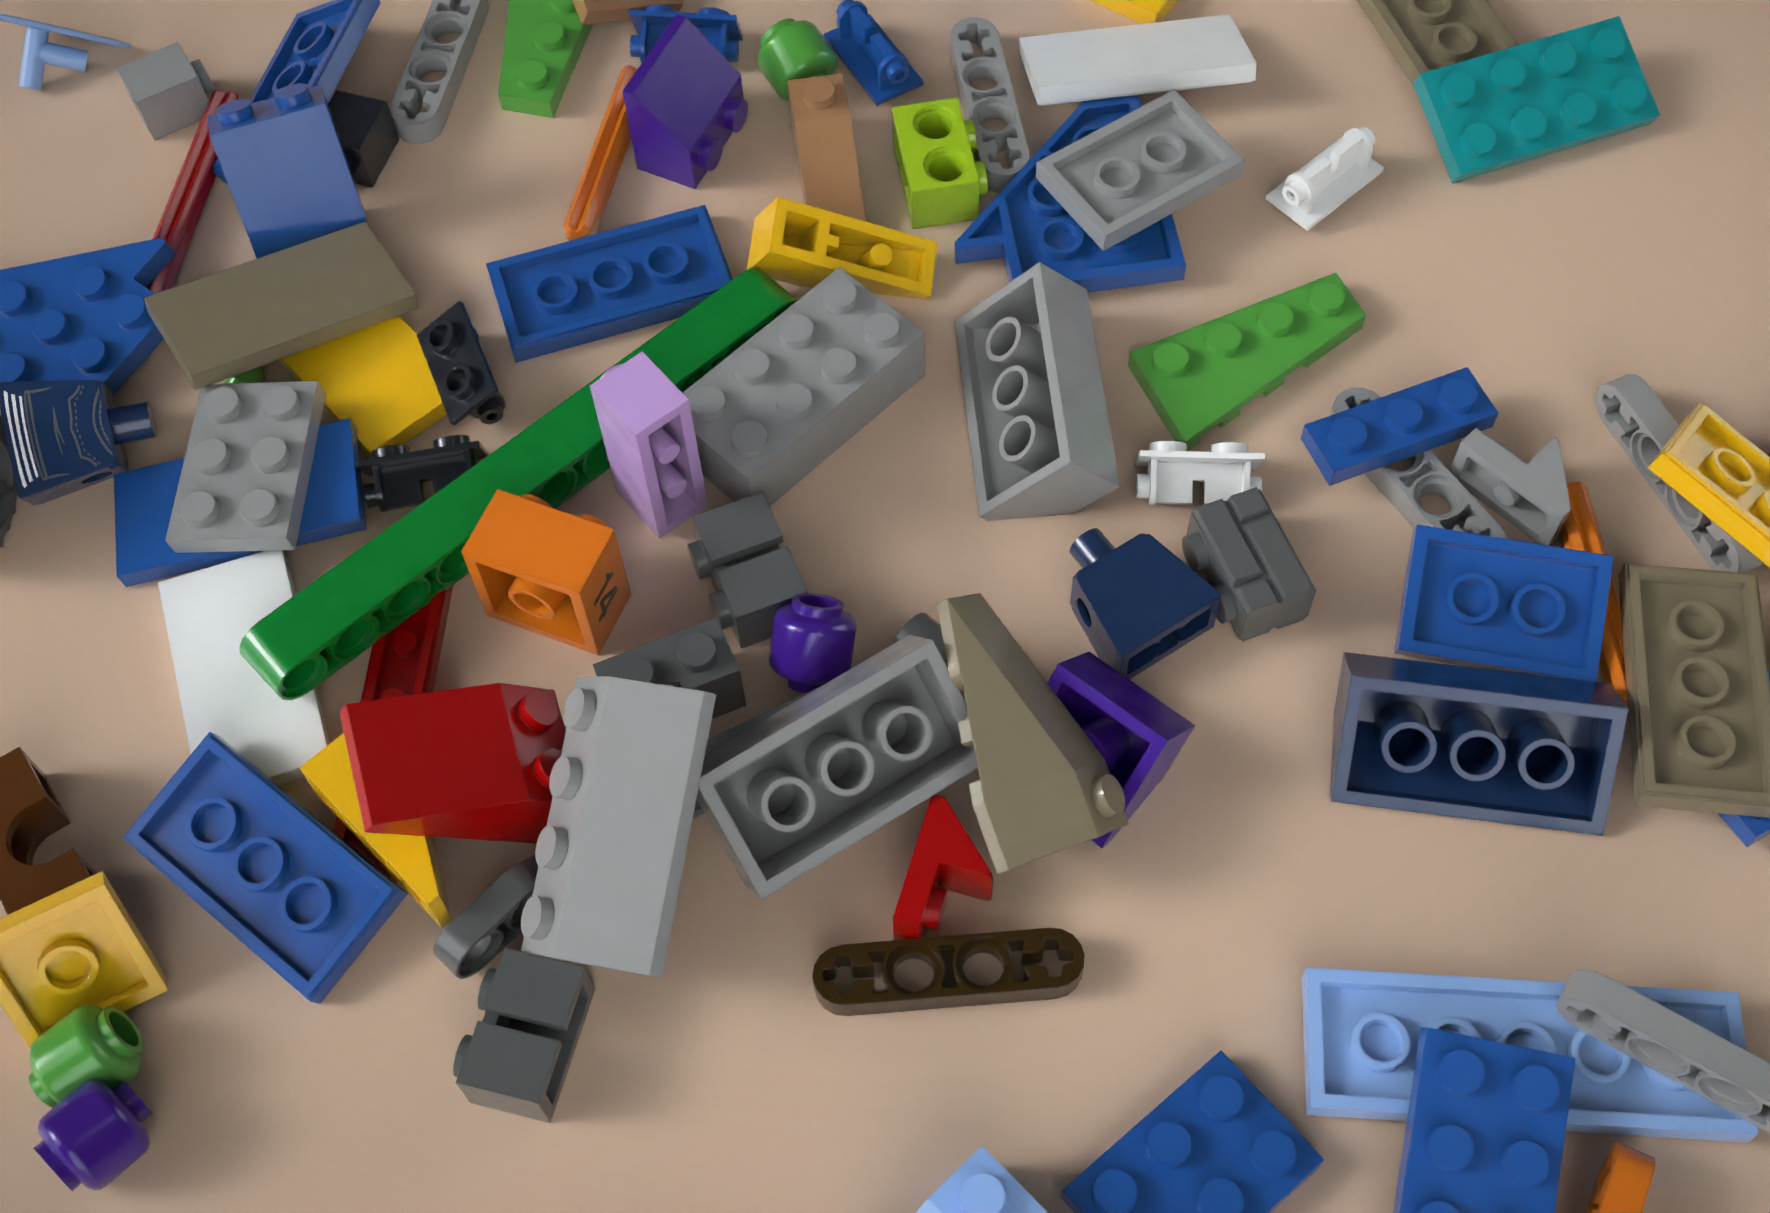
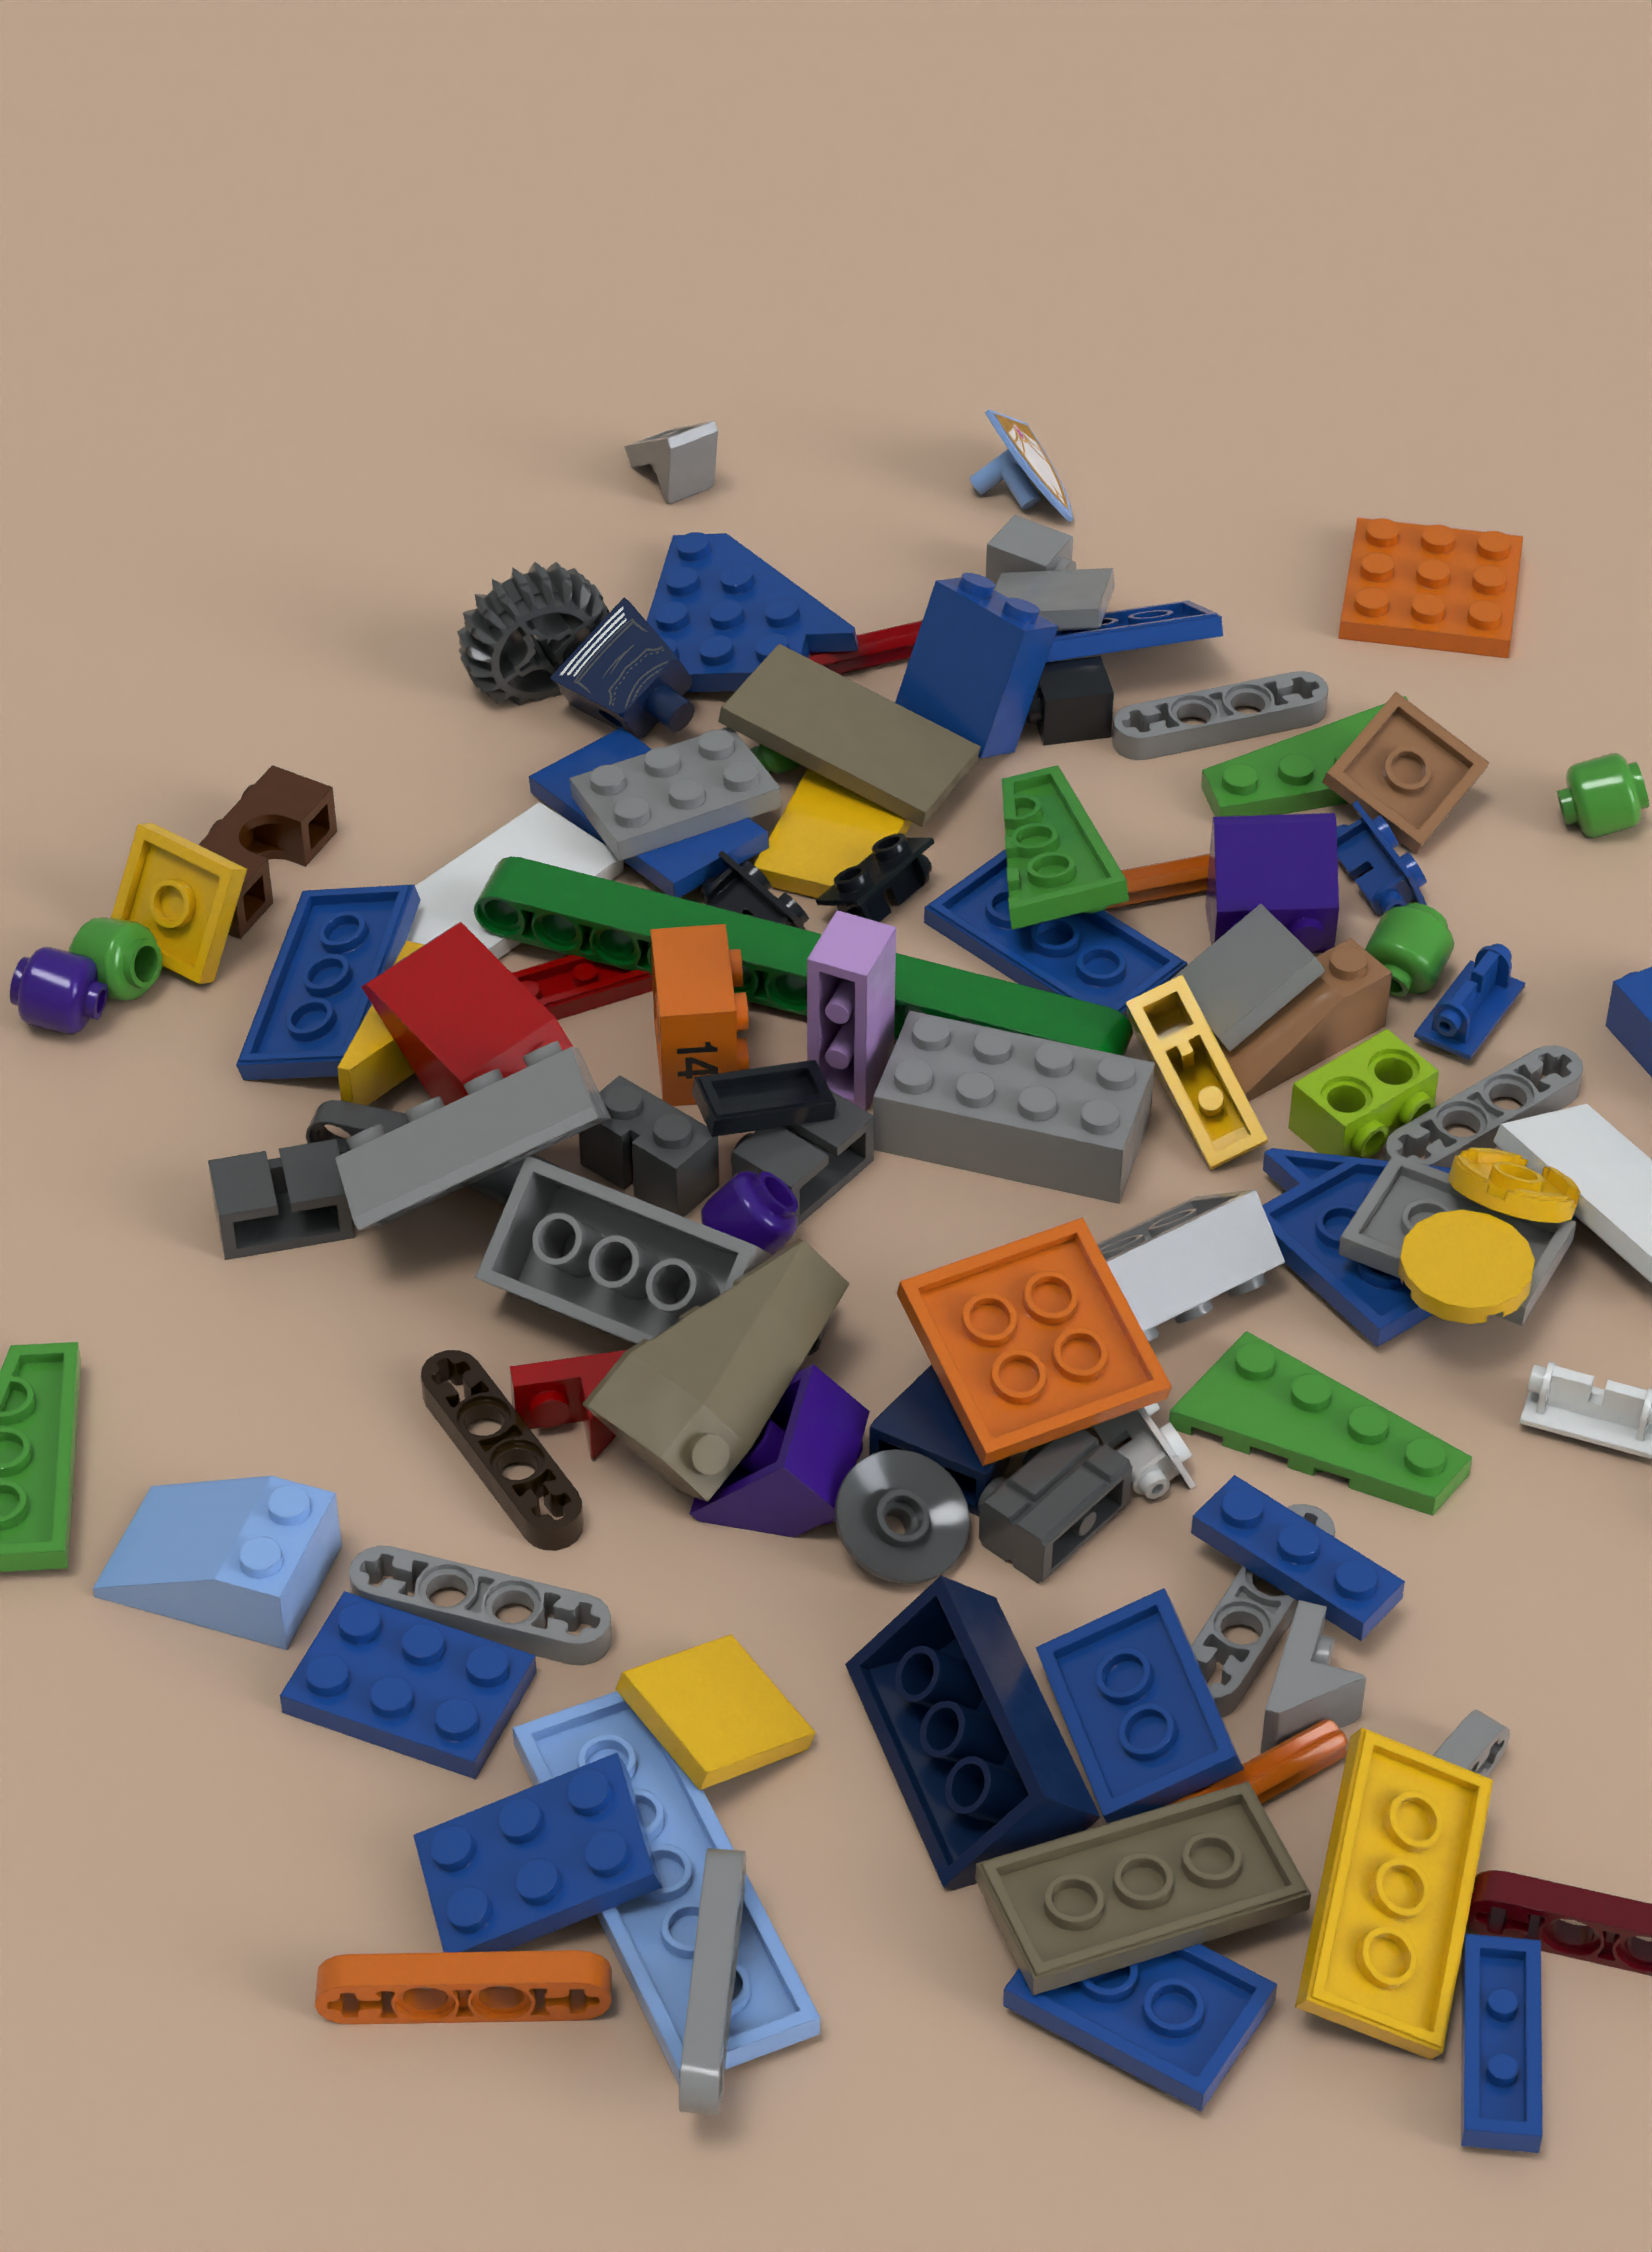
camera: 60 degrees right, 15 degrees down
(245, 71) = (1064, 596): none -> light grey tile
(536, 229) = (1054, 852): none -> bright green wing
(702, 562) = (763, 1098): none -> black tile
(767, 158) = (1249, 975): none -> light grey tile
(1123, 105) = (1507, 1186): none -> yellow tile
(1123, 1067) = (485, 1594): none -> light grey beam
(1129, 488) = (1033, 1341): none -> orange plate
(1193, 171) = (1466, 1266): none -> yellow tile
(1214, 682) = (921, 1497): none -> dark grey dish
(1367, 927) = (715, 1711): none -> yellow tile

